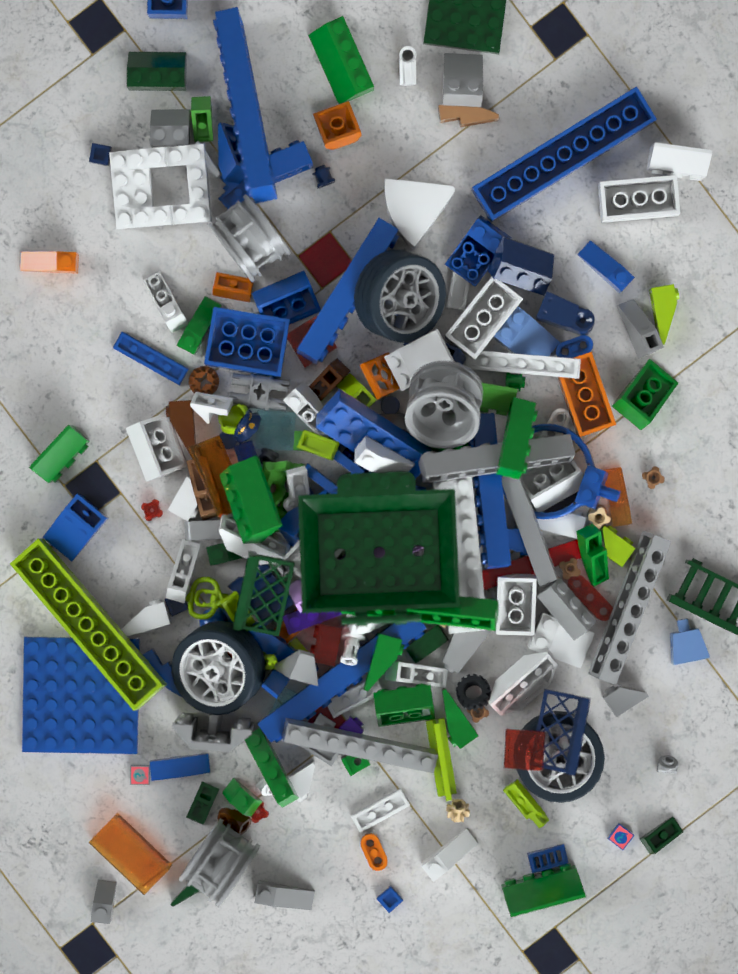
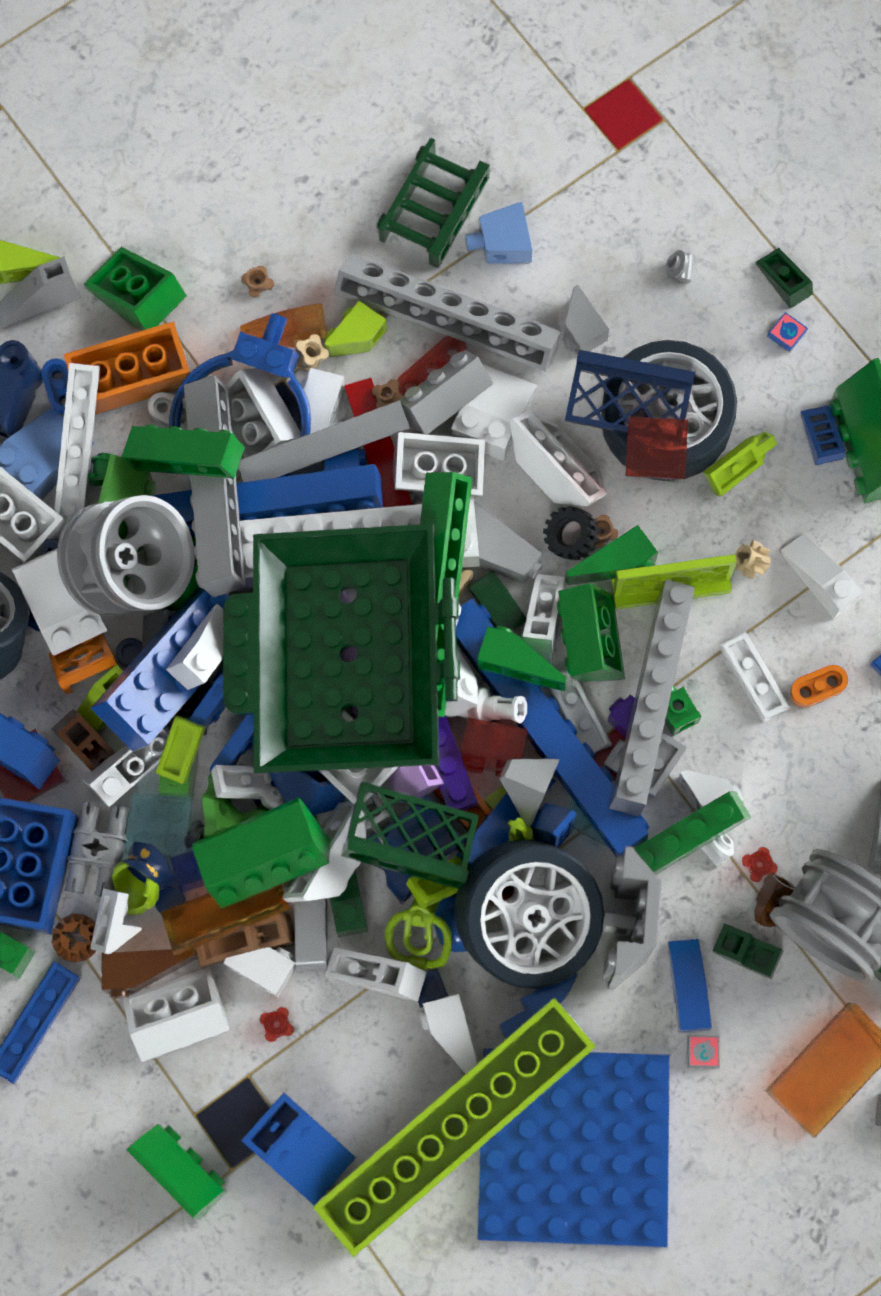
camera: 85 degrees left, 15 degrees down
(241, 798) = (736, 887): green slope -> none
(593, 554) = (365, 359): green slope -> none

